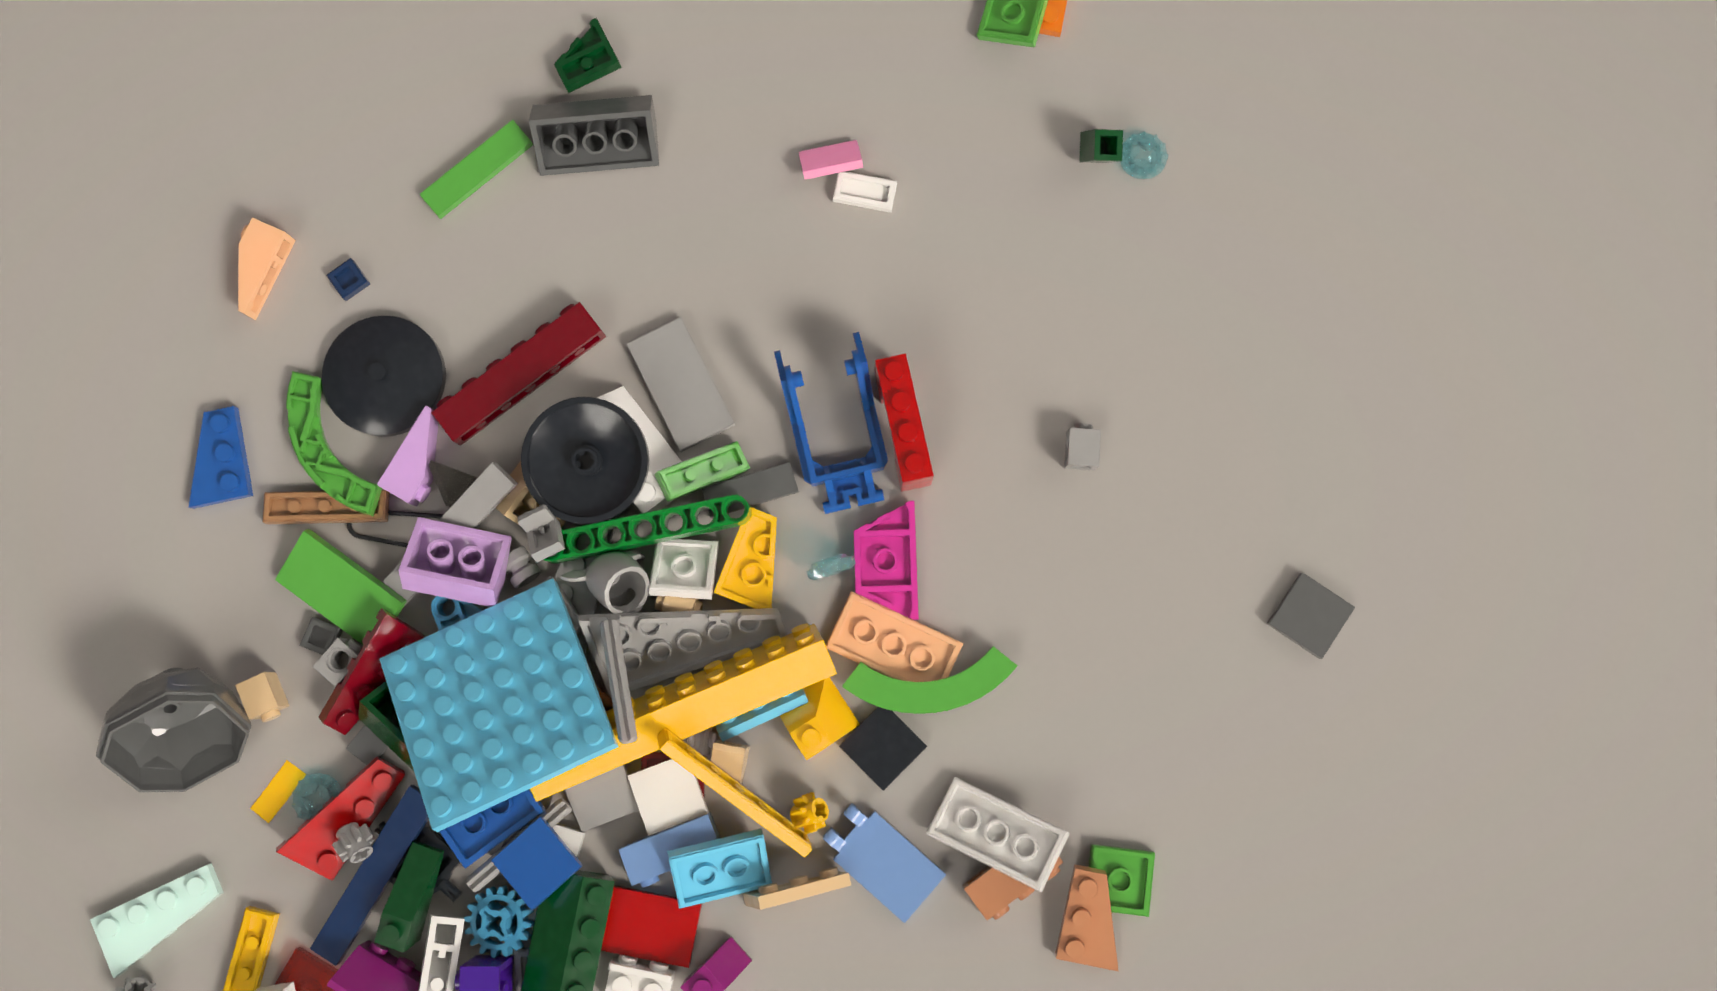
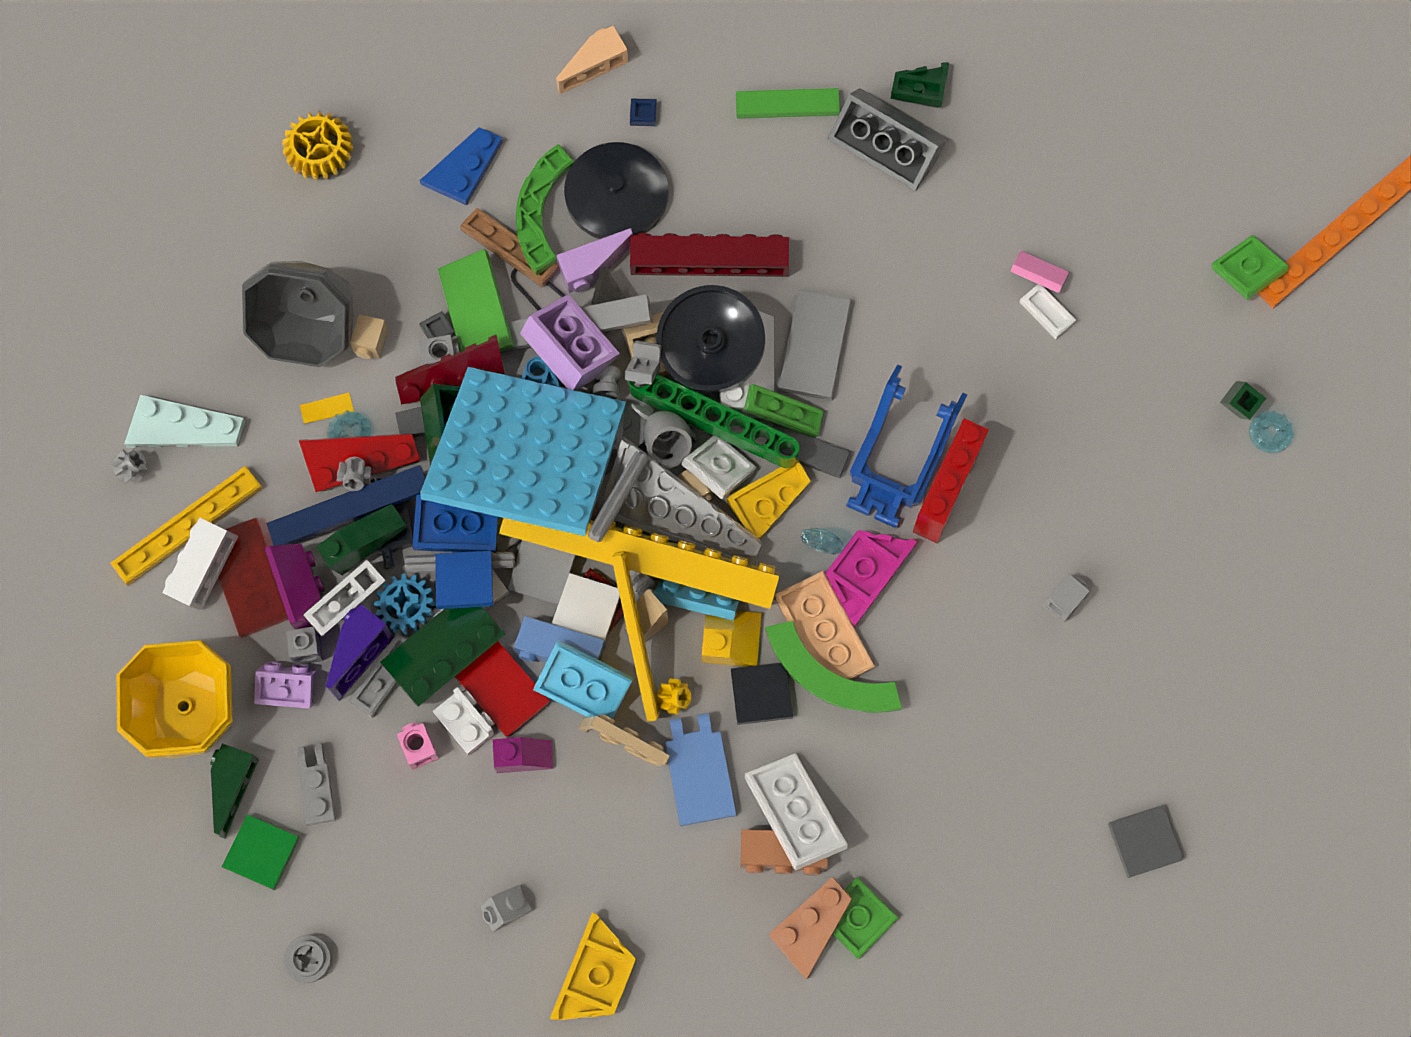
camera: 35 degrees right, 10 degrees down
(51, 536) = (321, 153): none -> yellow gear

